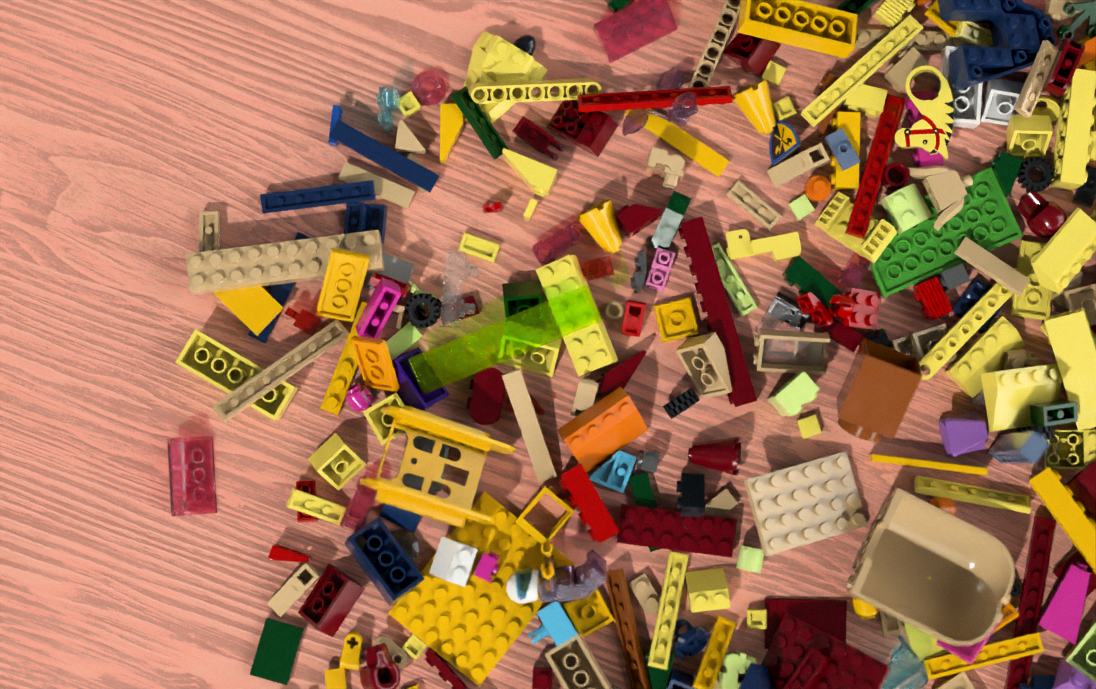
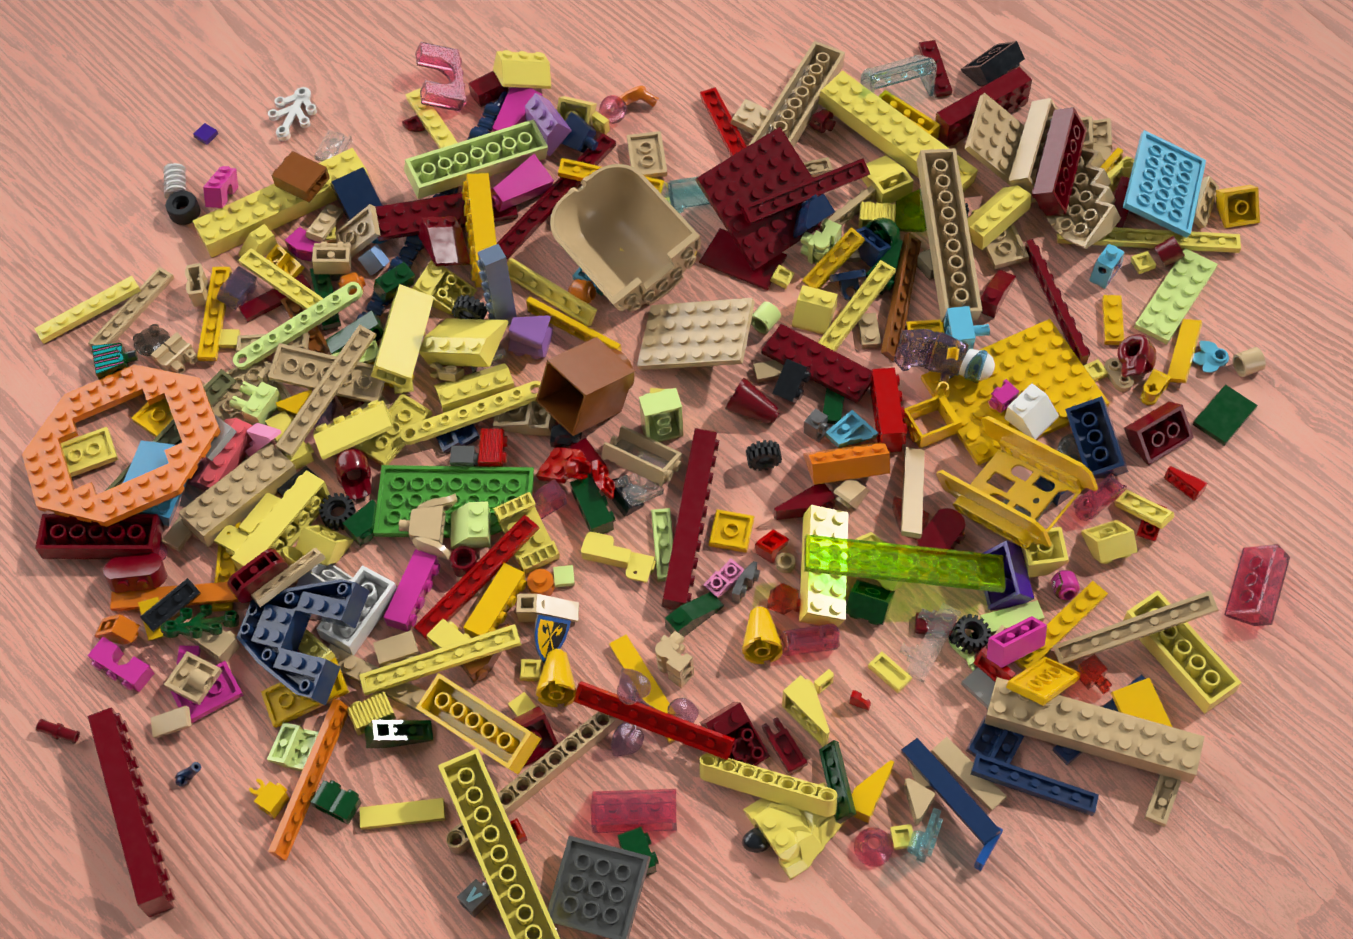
camera: 150 degrees left, 25 degrees down
(294, 588) = (1188, 452): tan slope -> none
(375, 363) = (1039, 598): light orange tile -> none
(636, 218) = (724, 623): dark red slope -> none
(706, 364) = (724, 476): tan slope -> none
(753, 205) = (607, 597): tan tile -> none
(842, 149) = (500, 599): sand blue plate -> none
(936, 126) = (401, 579): light yellow animal -> none
(992, 266) = (425, 447): tan tile -> none
(1053, 413) = (447, 312): dark green brick -> none

